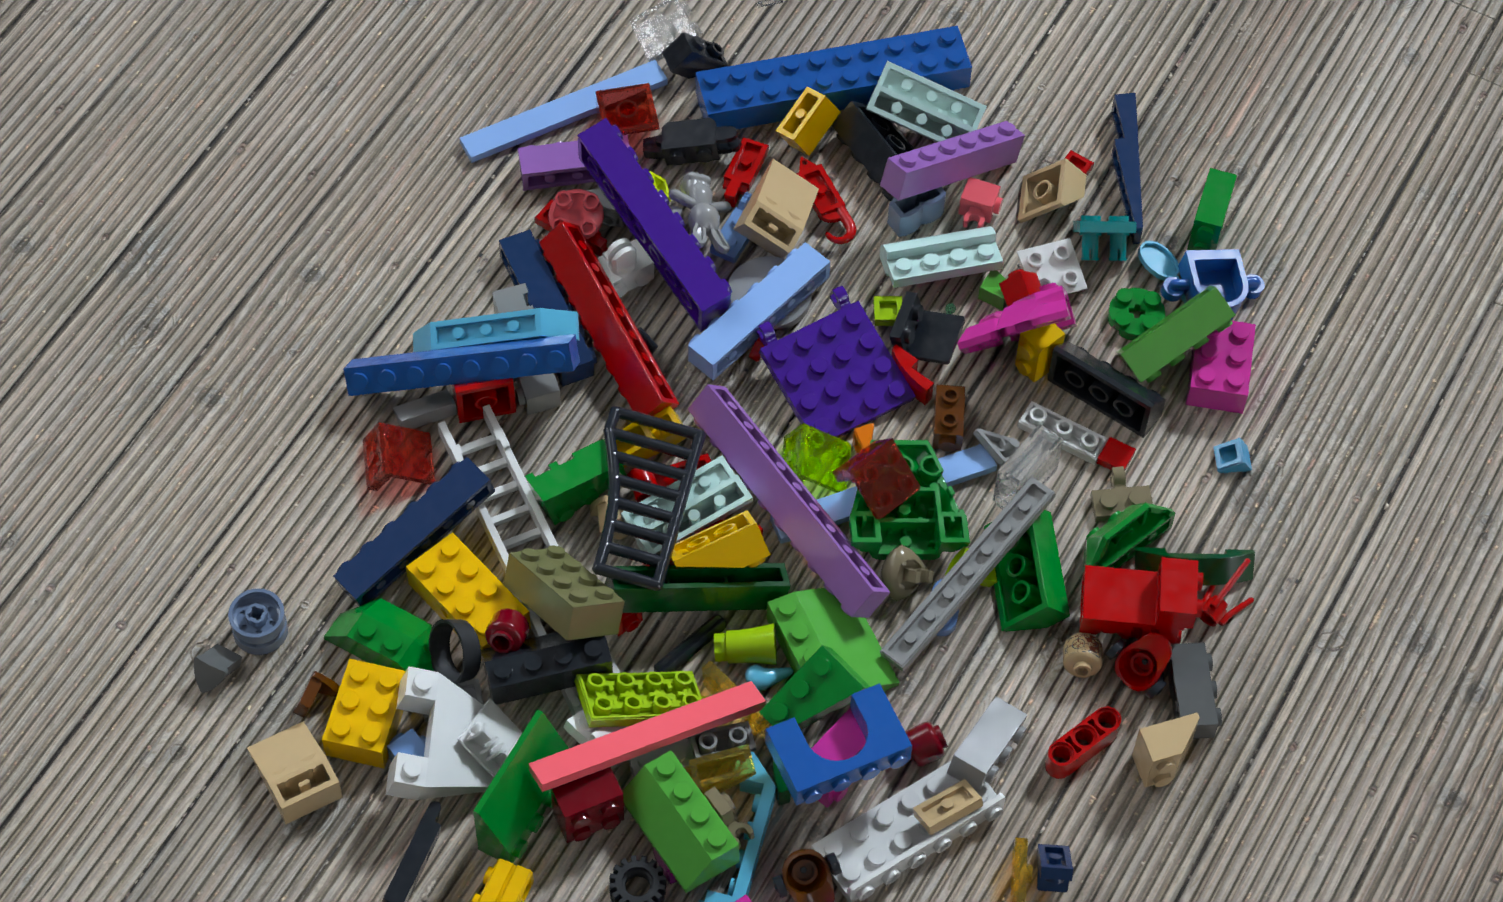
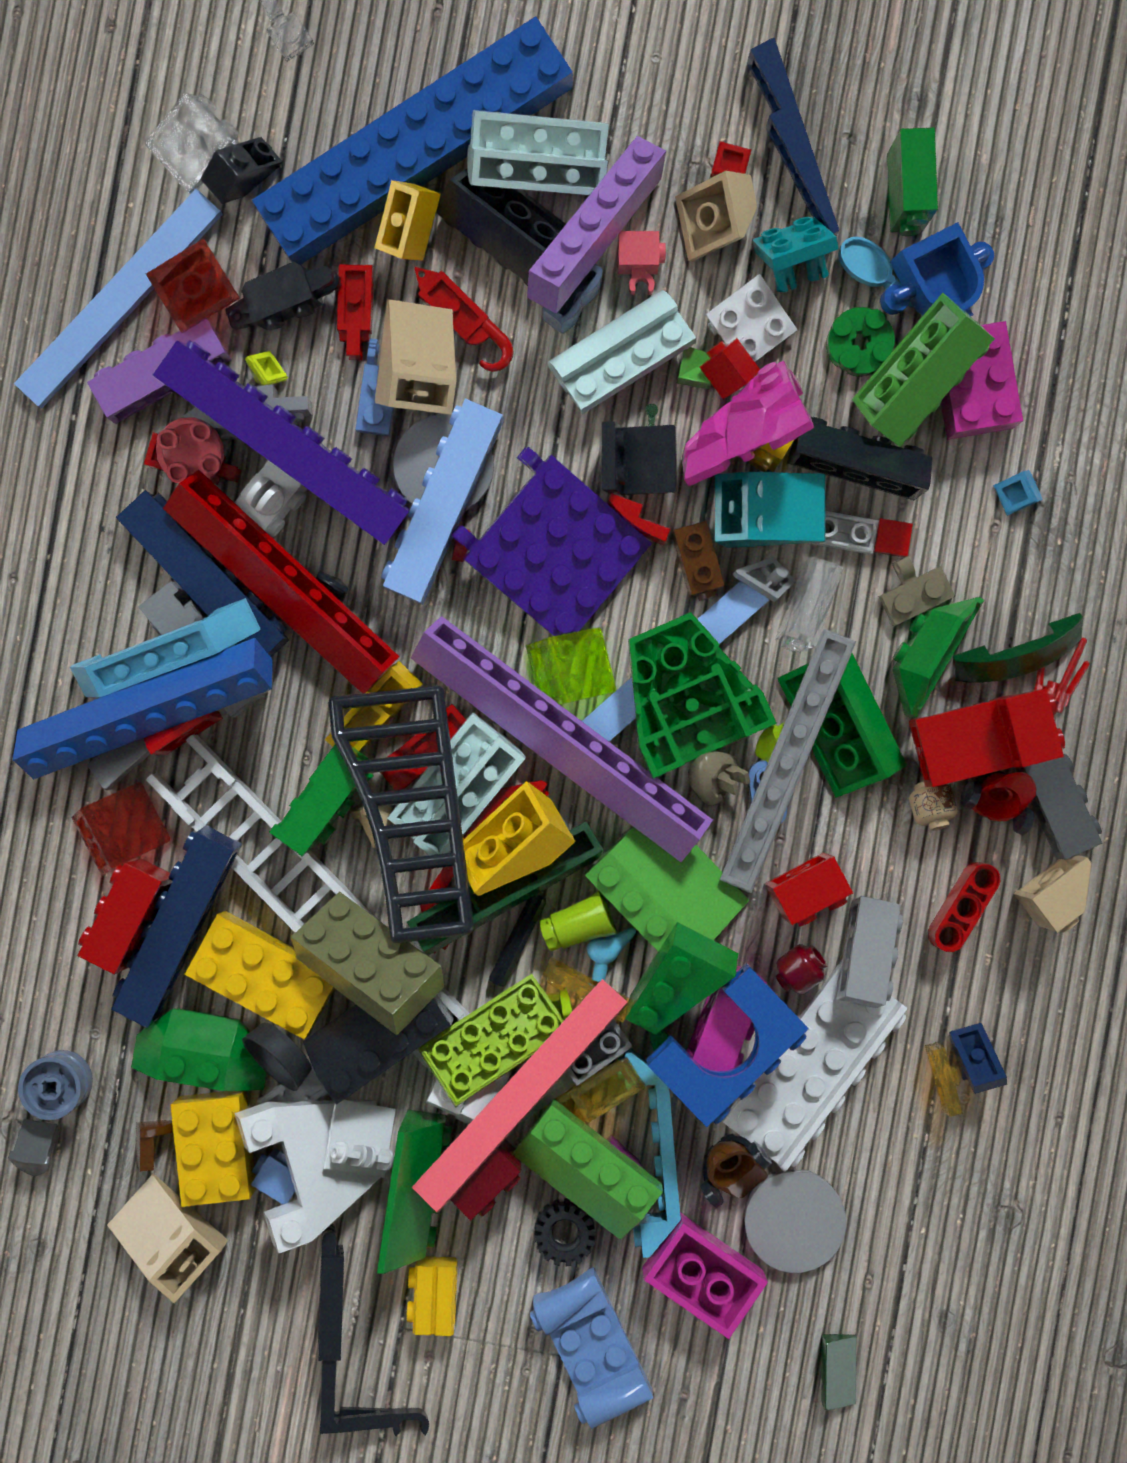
camera: 20 degrees left, 30 degrees up
(374, 506) = (123, 915): none -> red brick
(507, 630) = (325, 1025): dark red head -> none
(704, 213) = (334, 397): light grey animal -> none
(724, 808) = (628, 1139): dark tan plate -> none
(862, 437) = (616, 627): orange slope -> none
(880, 476) = (654, 689): clear red bracket -> none
(886, 309) = (584, 442): lime plate -> none
(947, 807) = (853, 1044): tan plate -> none
(952, 676) = (809, 889): none -> red brick
(1017, 393) = (769, 508): none -> teal slope

